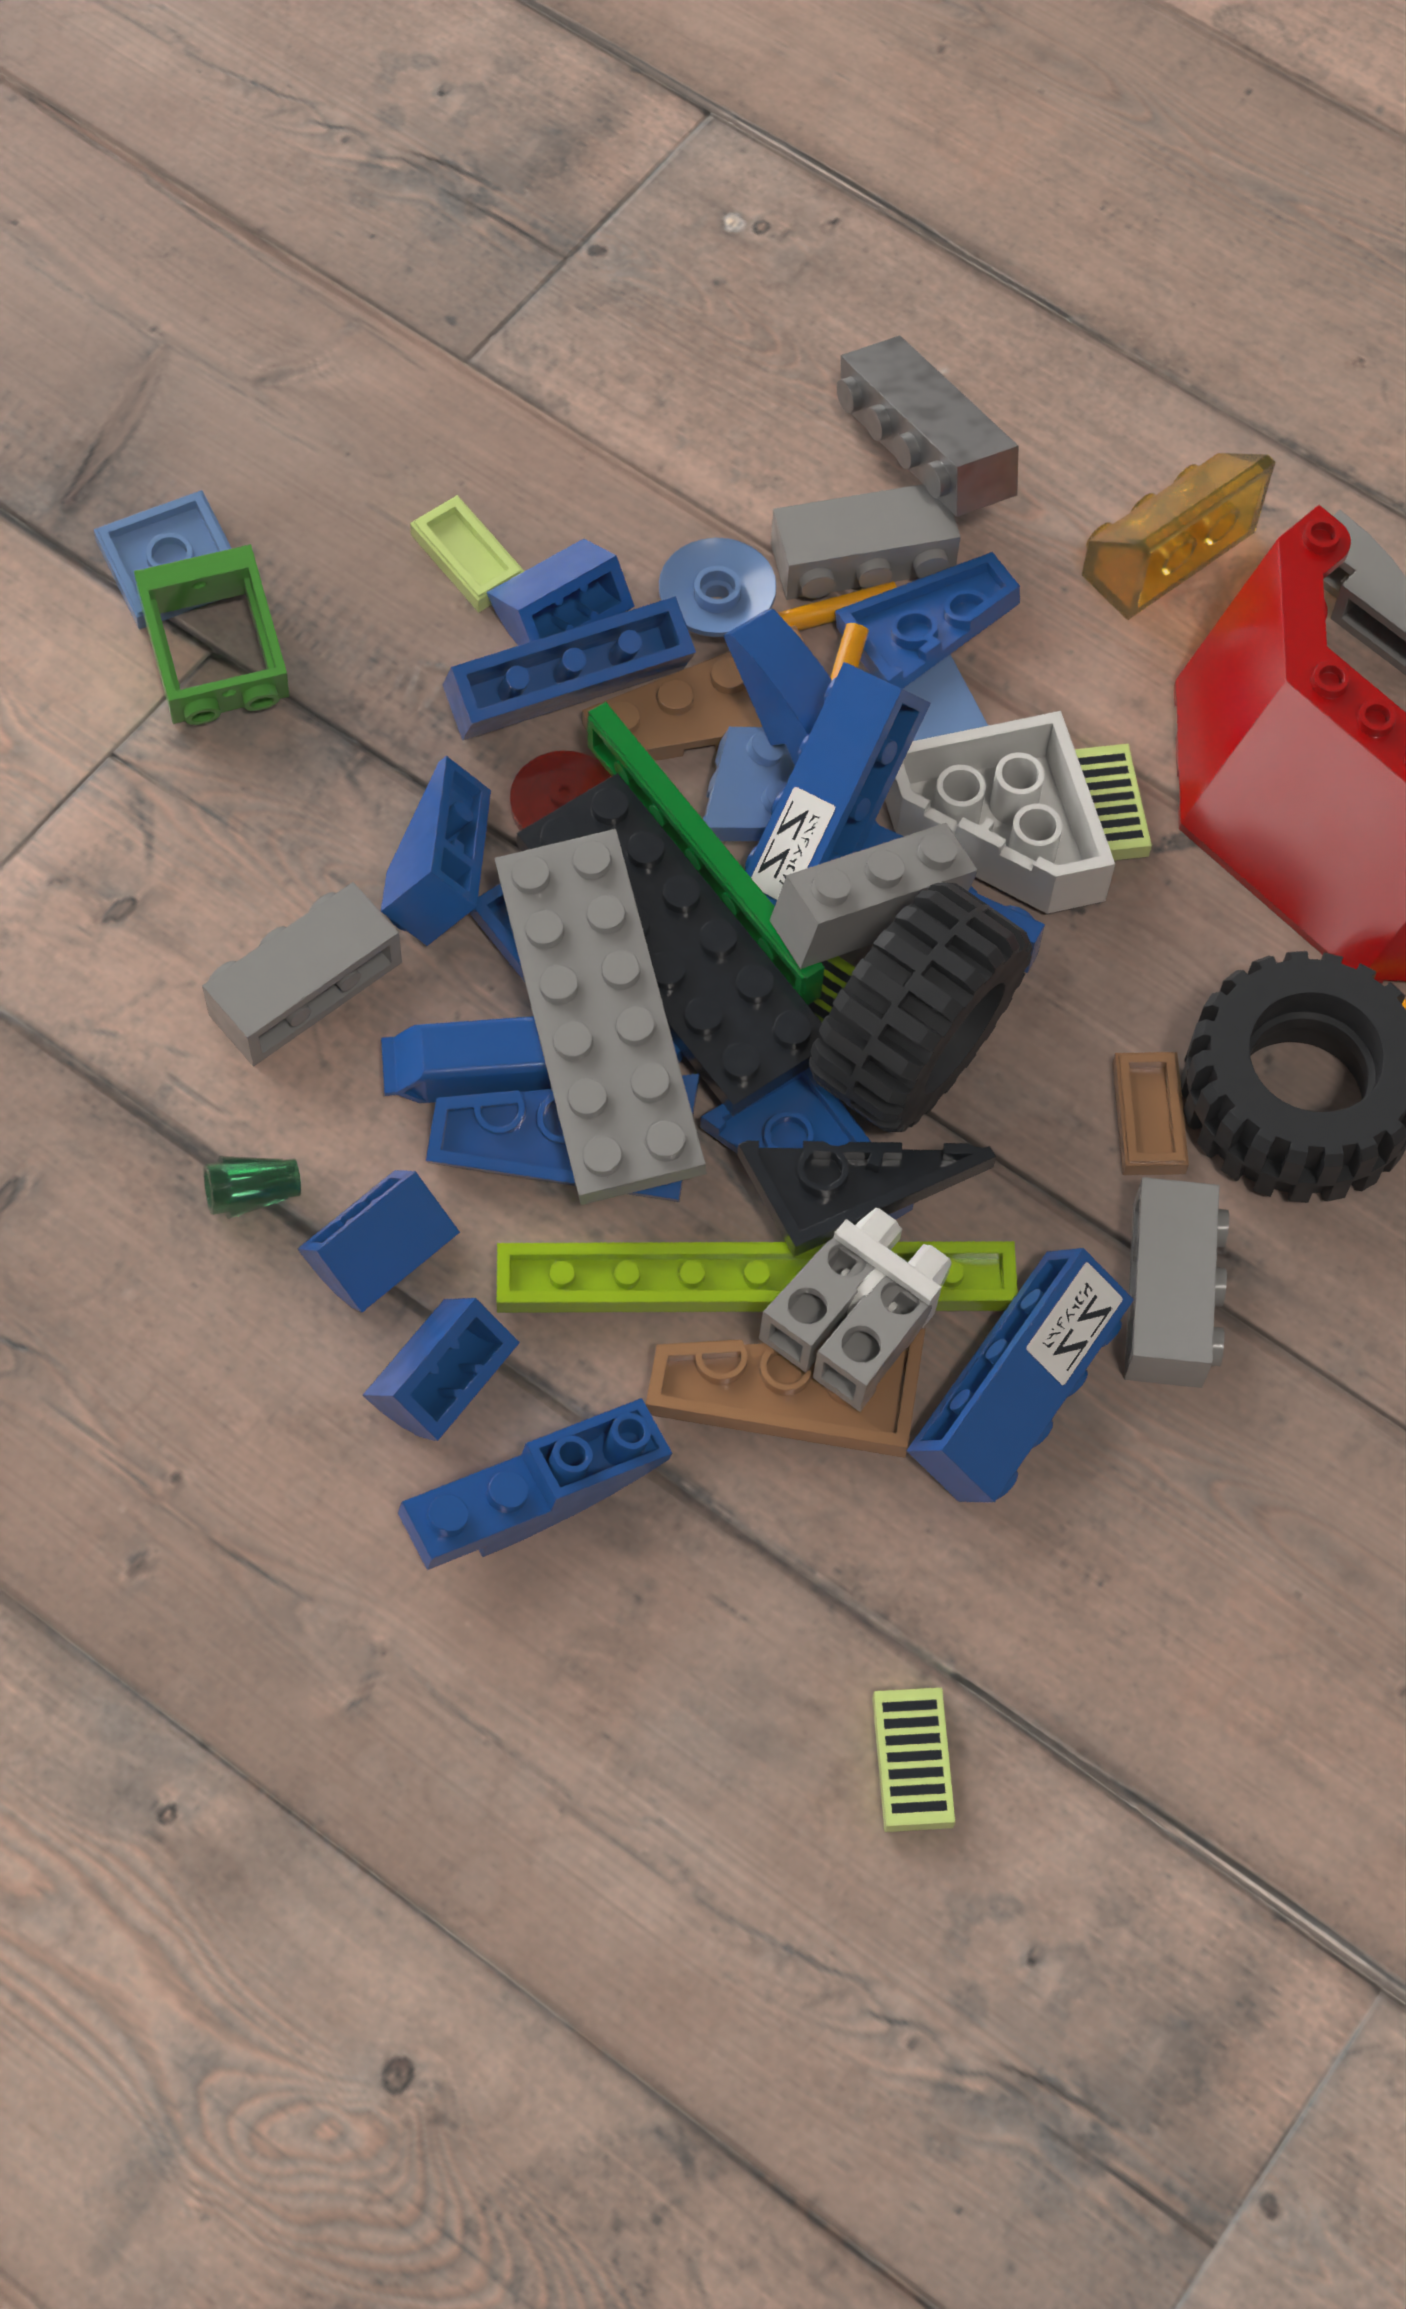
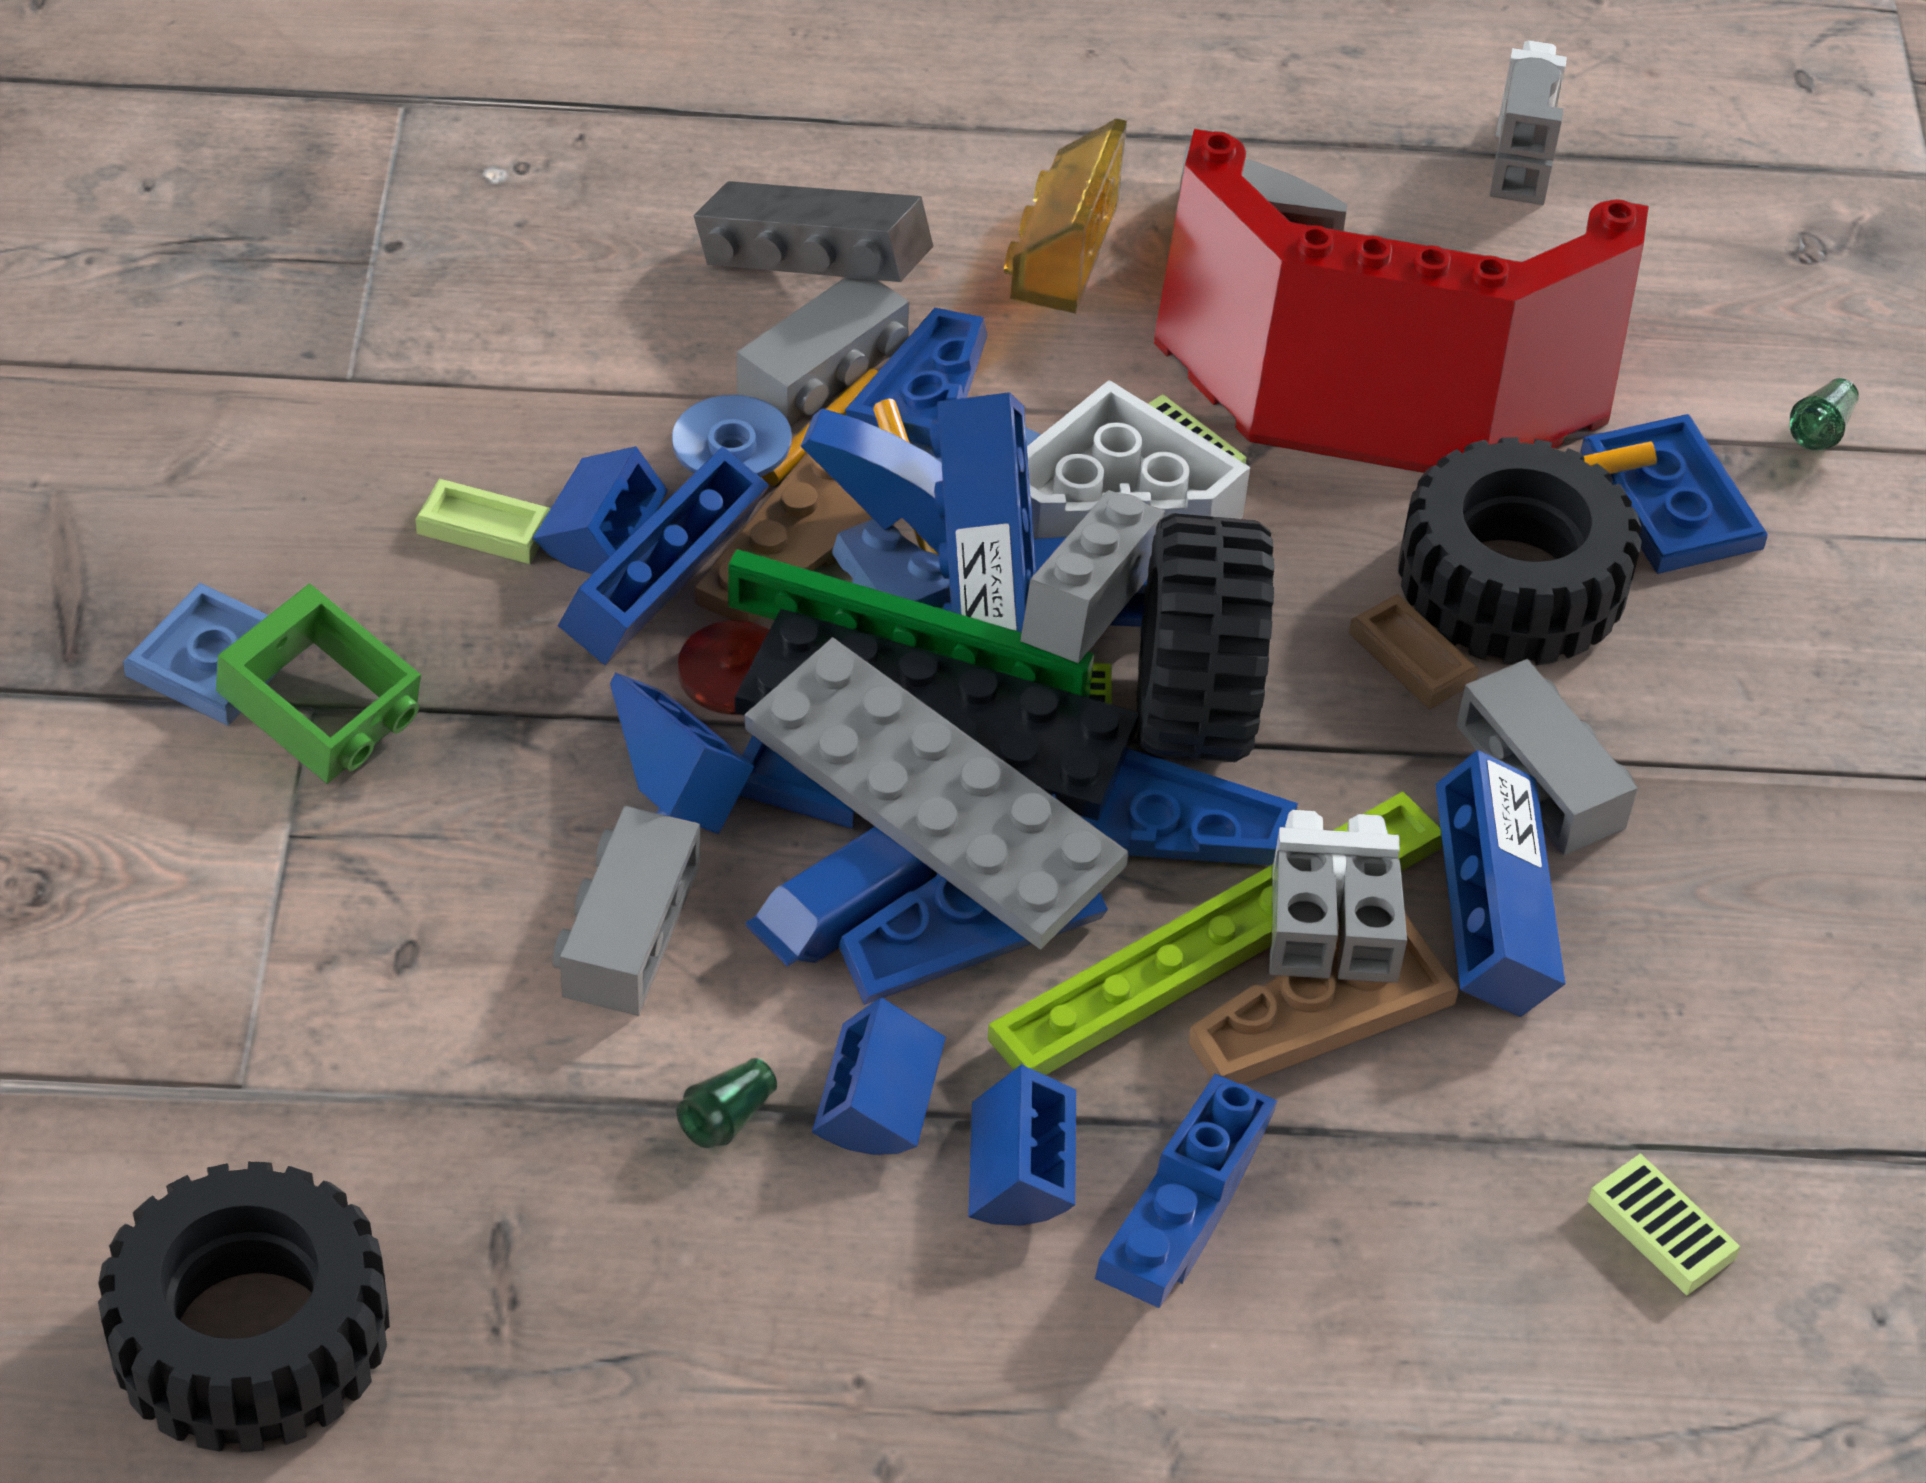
camera: 35 degrees left, 15 degrees down
(824, 1184) = (1236, 824): black wing -> none

